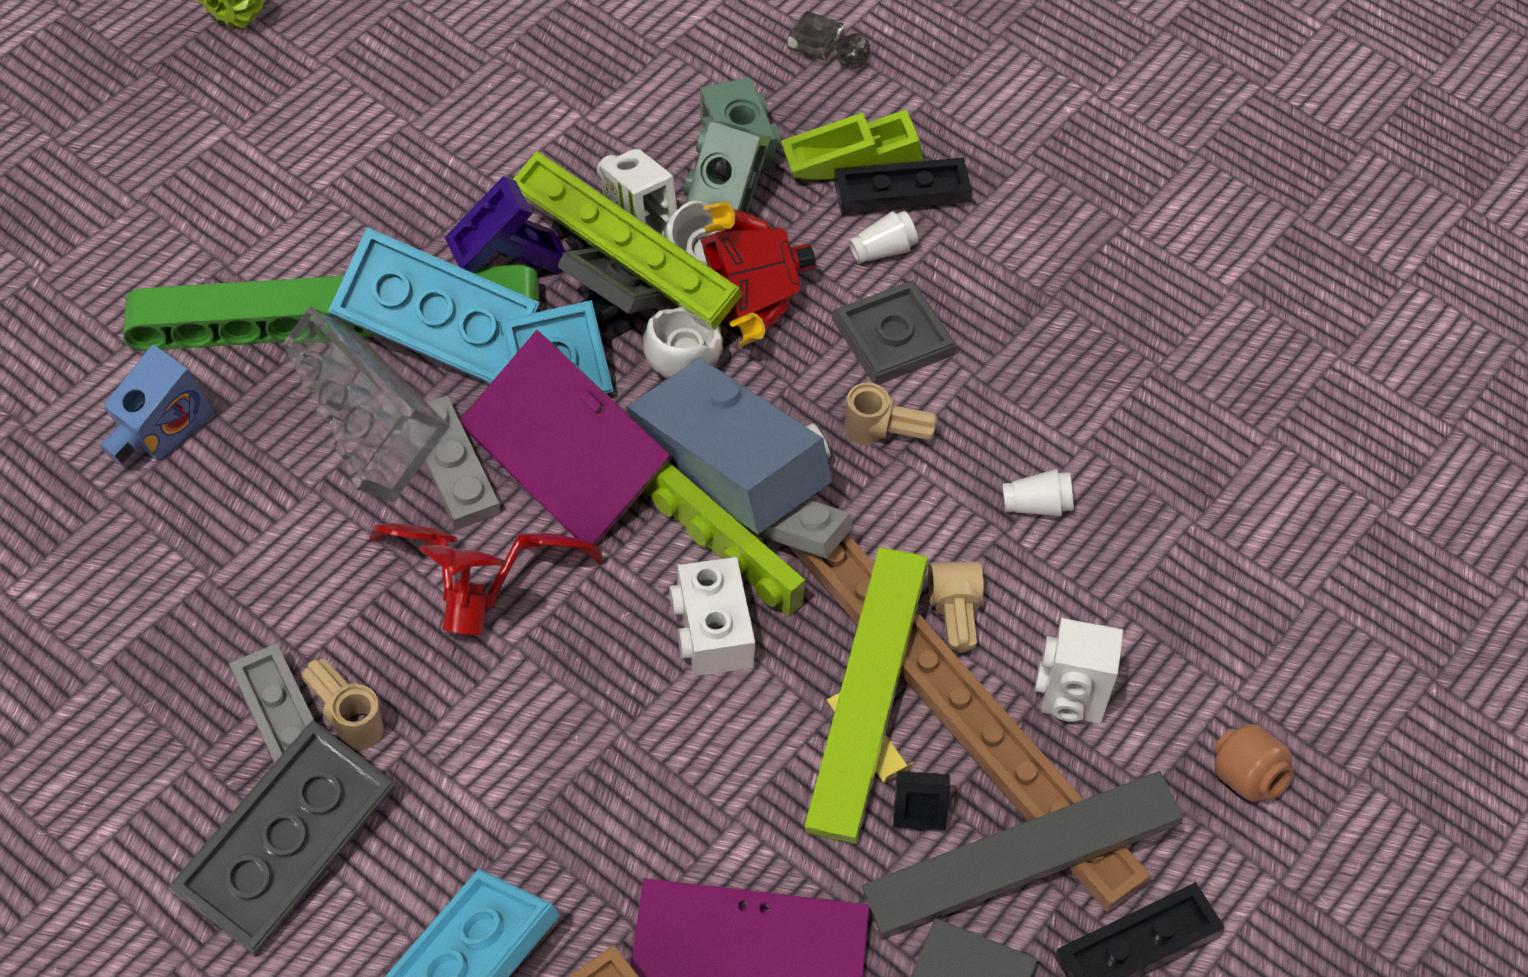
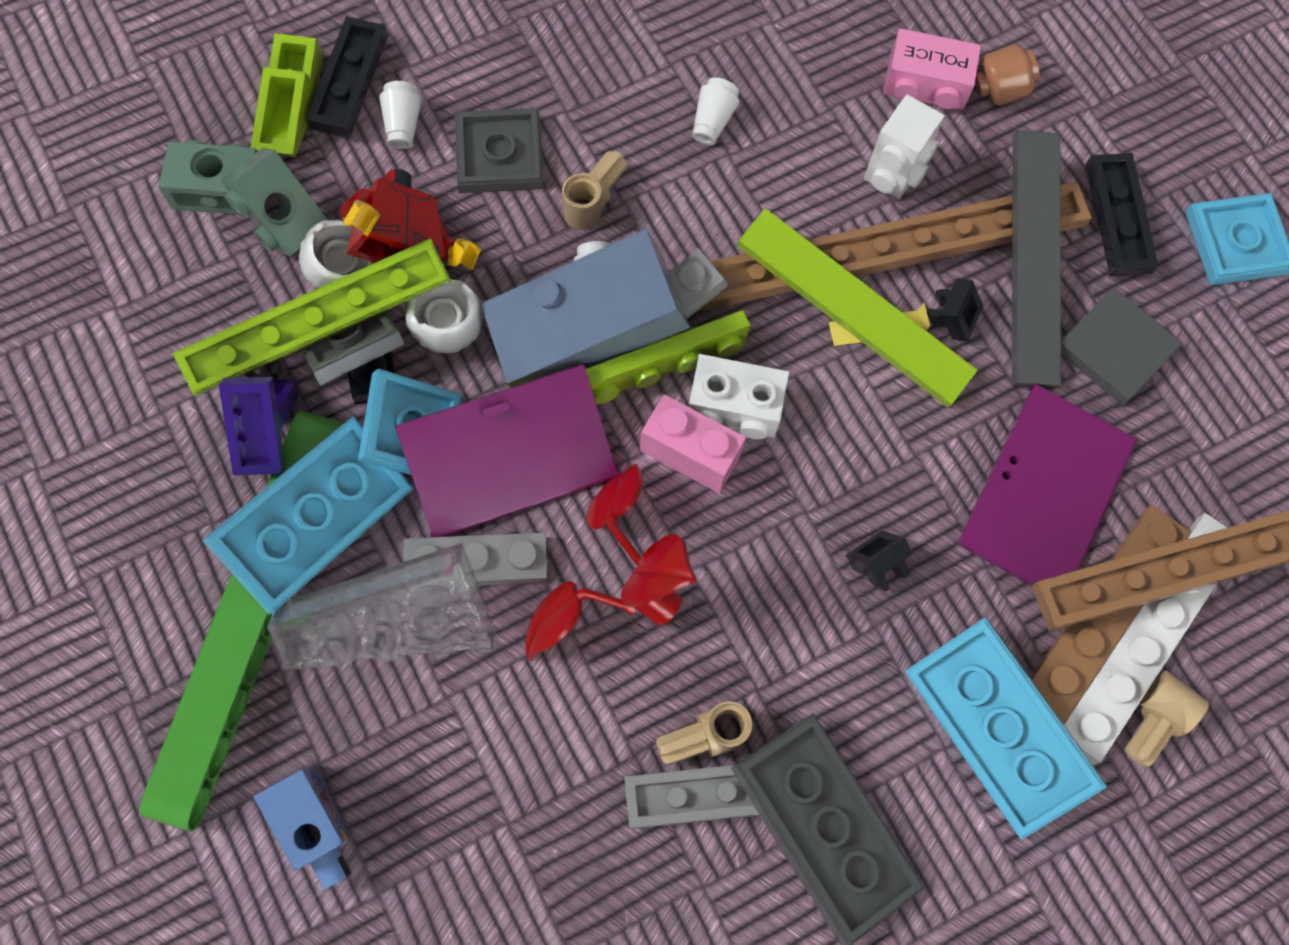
camera: 70 degrees left, 15 degrees up
(594, 802) = (878, 556): none -> black tile
(639, 187) = (254, 283): white torso -> none
(641, 591) = (691, 443): none -> bright pink brick
(820, 36) = (139, 72): clear smoke plate -> none
(957, 593) = (783, 200): tan axle -> none
(1212, 682) = (932, 69): none -> bright pink brick

